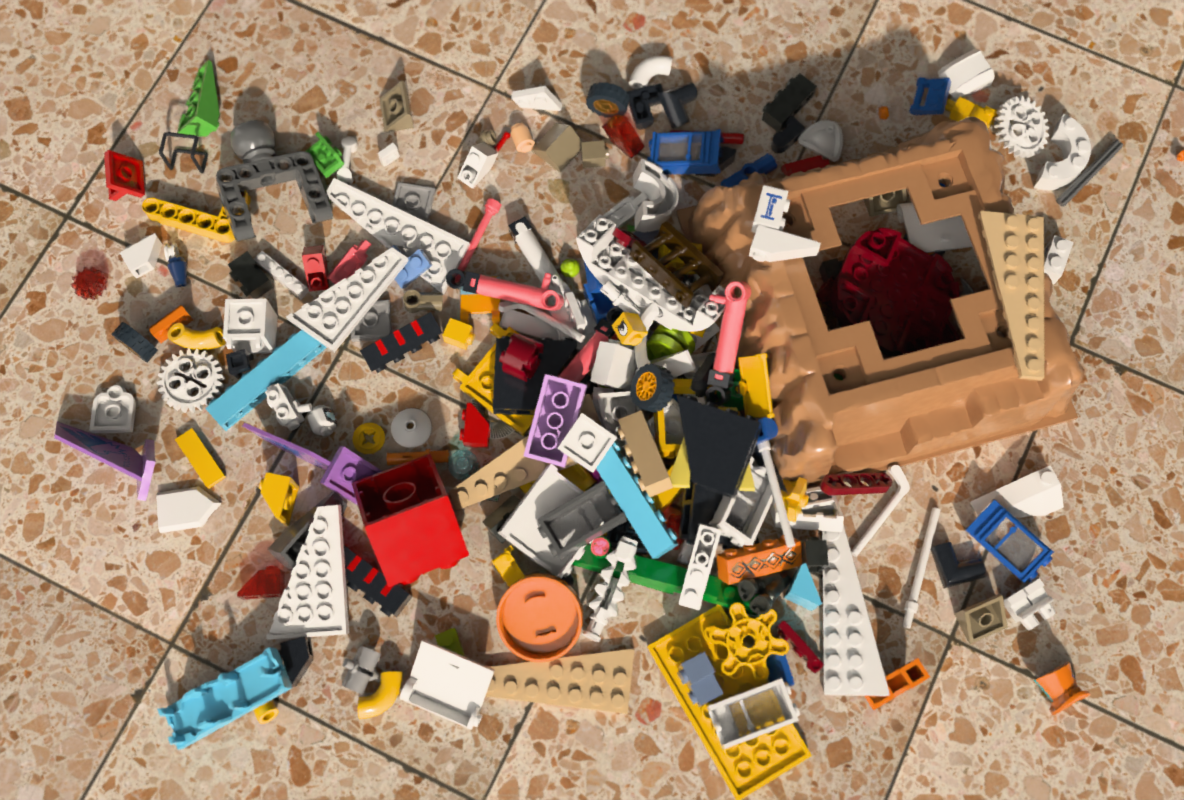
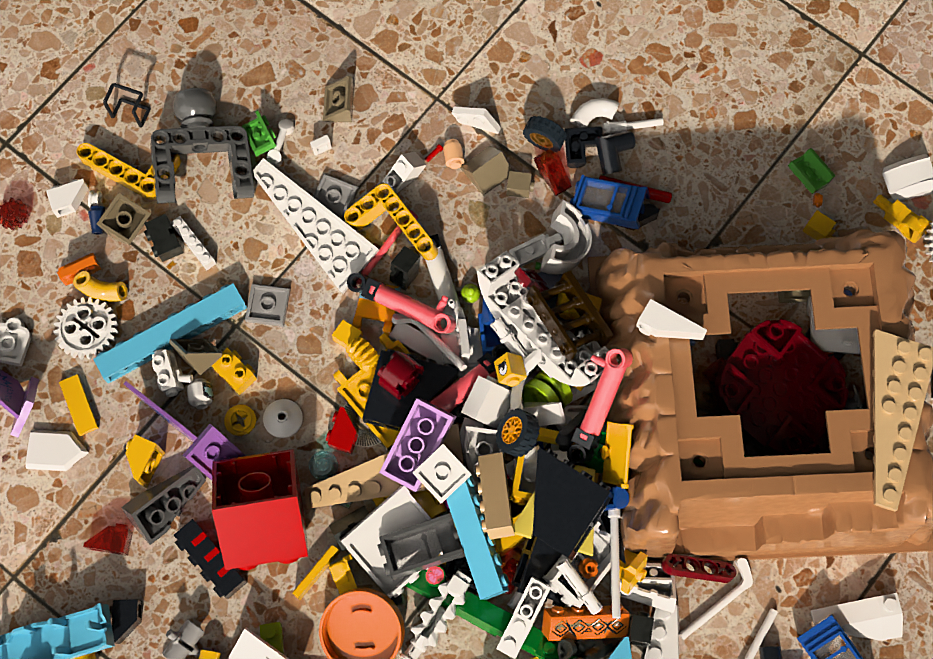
camera: 15 degrees right, 0 degrees up
(123, 175) = (66, 115): red bracket -> none
(134, 342) = (41, 281): black wheel -> none
(202, 105) = (155, 61): bright green wedge -> none
(205, 265) = (123, 219): none -> dark tan slope
(239, 362) = (134, 320): black panel -> none
(250, 325) = (151, 288): white container -> none
(310, 381) = (197, 353): none -> dark tan slope
(315, 267) = (226, 242): red slope -> none
(317, 589) = (157, 560): white wing -> none
(344, 304) = (244, 286): white wing -> none
(350, 262) = (259, 246): coral hinge -> none
(351, 391) = (234, 372): none -> yellow brick
(400, 342) = (290, 333): black brick -> none
(403, 457) = (271, 446): orange pin -> none
(417, 265) = (311, 262): medium blue plate -> none
(425, 301) = (324, 297): dark tan piece -> none
(477, 346) = (362, 353): none -> yellow gear
(479, 571) = (316, 572): none -> yellow tile
(483, 206) = (400, 215): none -> yellow beam
(488, 137) = (420, 147): dark tan plate -> none
(500, 255) = (405, 267): none -> pearl dark grey brick
(675, 81) = (621, 126): none -> white pin
(746, 505) = (583, 565): none -> orange plate
(753, 528) = (584, 592): none -> white pin
(762, 165) = (677, 231): blue piece -> none
(771, 208) = (667, 285): white brick -> none
(785, 139) = (712, 207): black leg -> none
(788, 102) = (724, 170): pearl dark grey brick -> none
(804, 165) = (724, 239): red slope -> none
(824, 139) = (751, 215): white hat -> none
(872, 86) = (812, 171): none -> bright green bracket
(891, 136) = (819, 226): none -> yellow brick
(935, 99) = (873, 196): blue plate -> none

